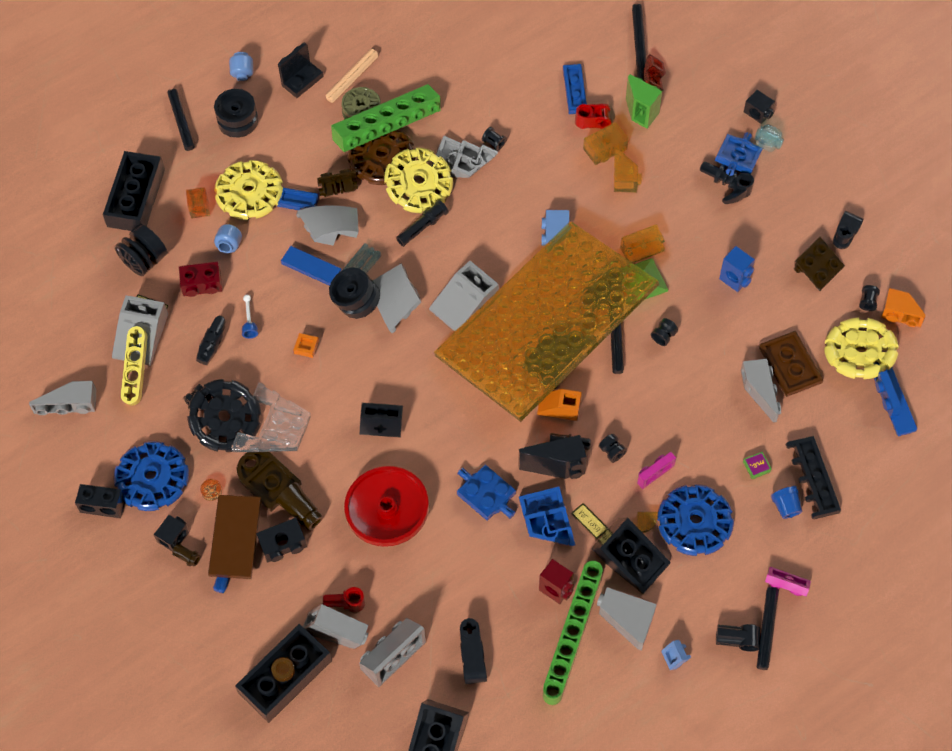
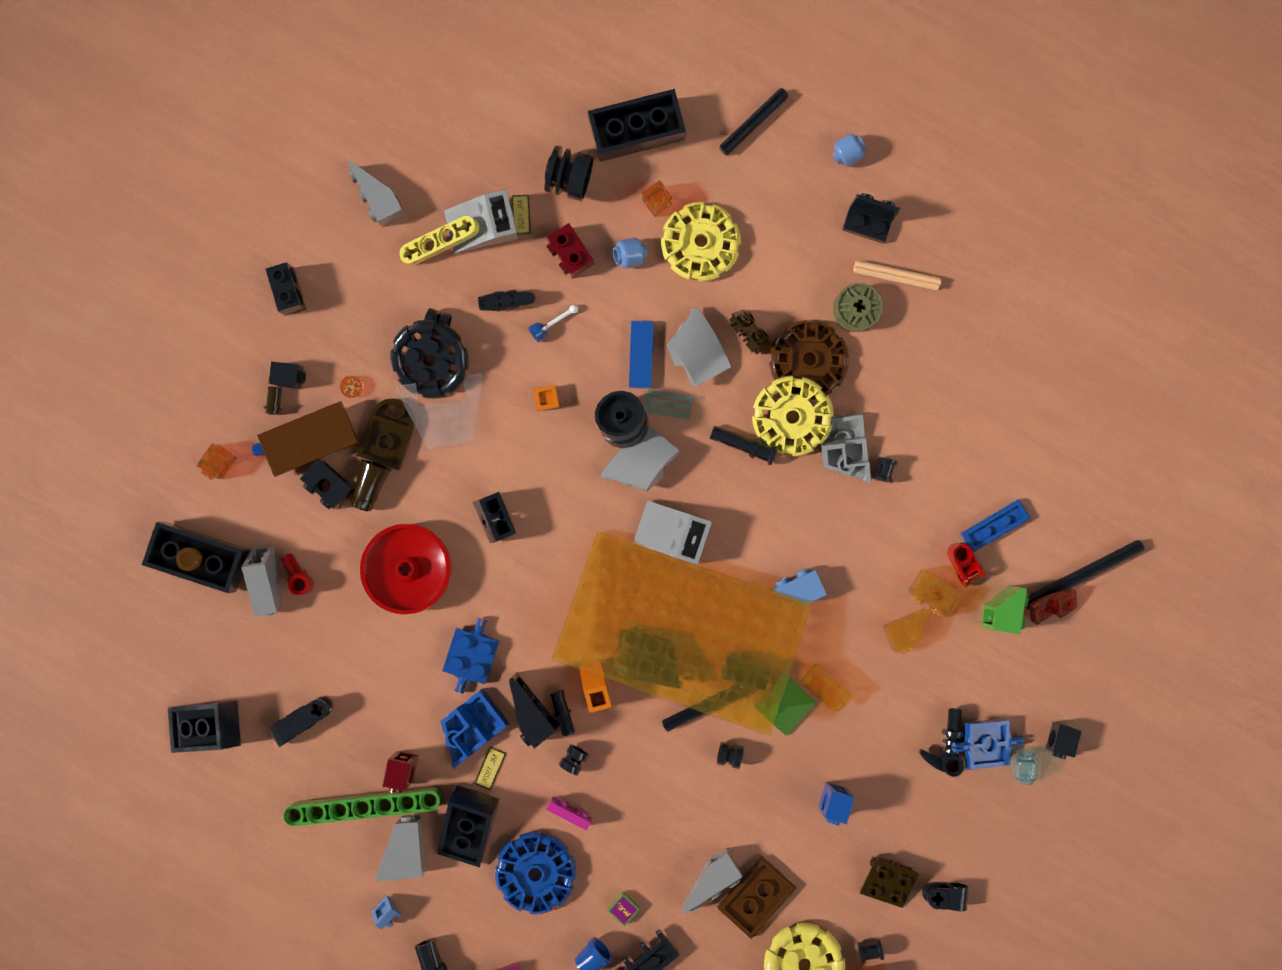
camera: 65 degrees right, 25 degrees up
(151, 487) = (350, 325): blue plate -> none
(211, 623) = (216, 462): none -> clear orange brick
(236, 113) = (780, 165): black wheel -> none
(297, 199) = (714, 300): blue tile -> none
(385, 118) = (845, 331): bright green brick -> none
(393, 651) = (263, 647): light grey slope -> none
(646, 520) = (513, 824): clear yellow tile -> none

